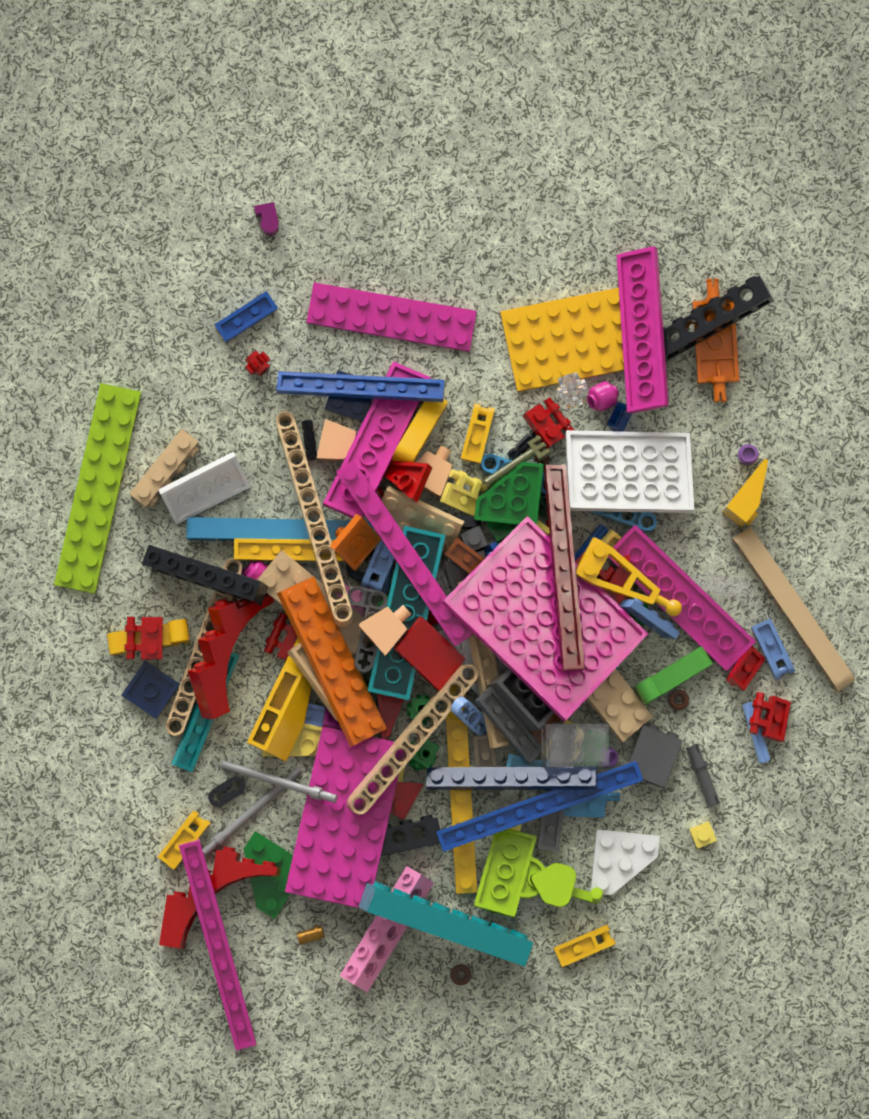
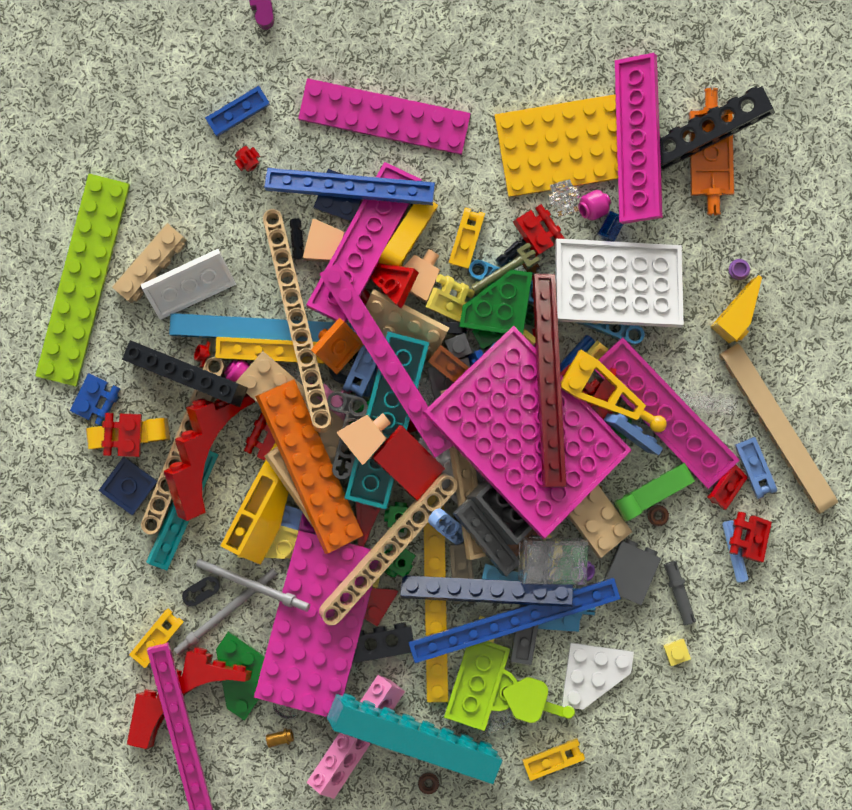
camera: 10 degrees right, 5 degrees up
(108, 603) = (89, 397): none -> blue plate
(219, 555) = (202, 353): none -> red plate

